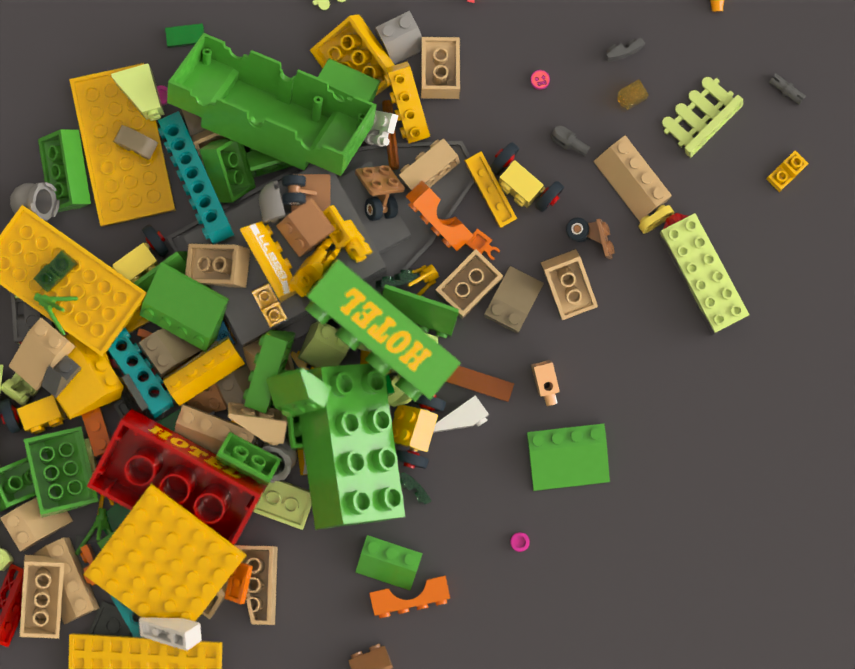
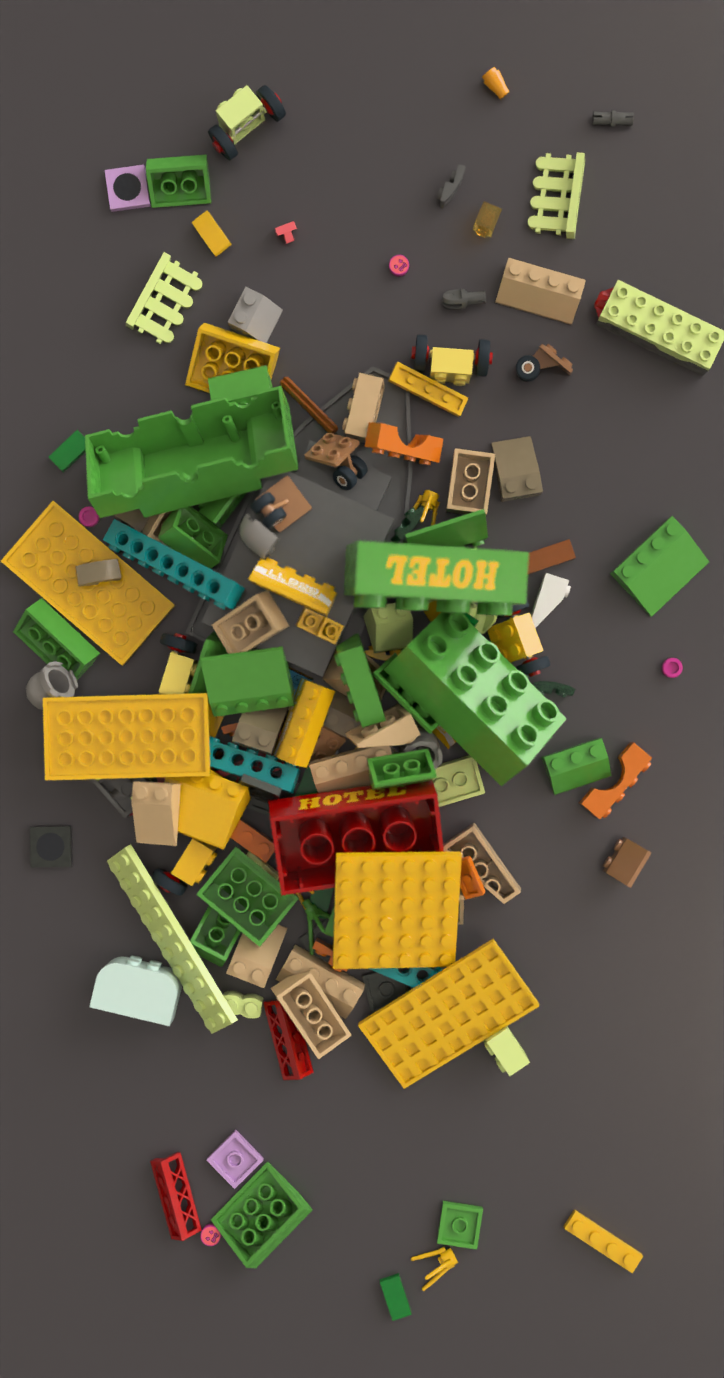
camera: 35 degrees left, 5 degrees up
(18, 389) = (158, 855): yellowish green cylinder -> none
(49, 303) = (131, 765): bright green plant -> none
(55, 271) = (115, 733): clear green slope -> none
(58, 378) = (187, 820): dark grey slope -> none
(141, 89) = (68, 524): yellowish green slope -> none
(171, 631) = (445, 961): white slope -> none
(297, 392) = (404, 682): bright green slope -> none
(305, 228) = (302, 536): medium nougat slope -> none
(313, 268) = (335, 565): yellow plate -> none
(347, 235) = (339, 517): yellow plate -> none
(384, 123) = (298, 399): white plate -> none
(407, 101) = (303, 366): yellow brick -> none
(440, 68) = (308, 317): tan slope -> none
(481, 243) = (453, 440): orange plate -> none
(543, 373) = (595, 516): light nougat torso -> none
(569, 284) = (553, 420): tan slope -> none
(649, 223) = (581, 319): light yellow plate -> none
(787, 171) = (664, 189): yellow slope -> none

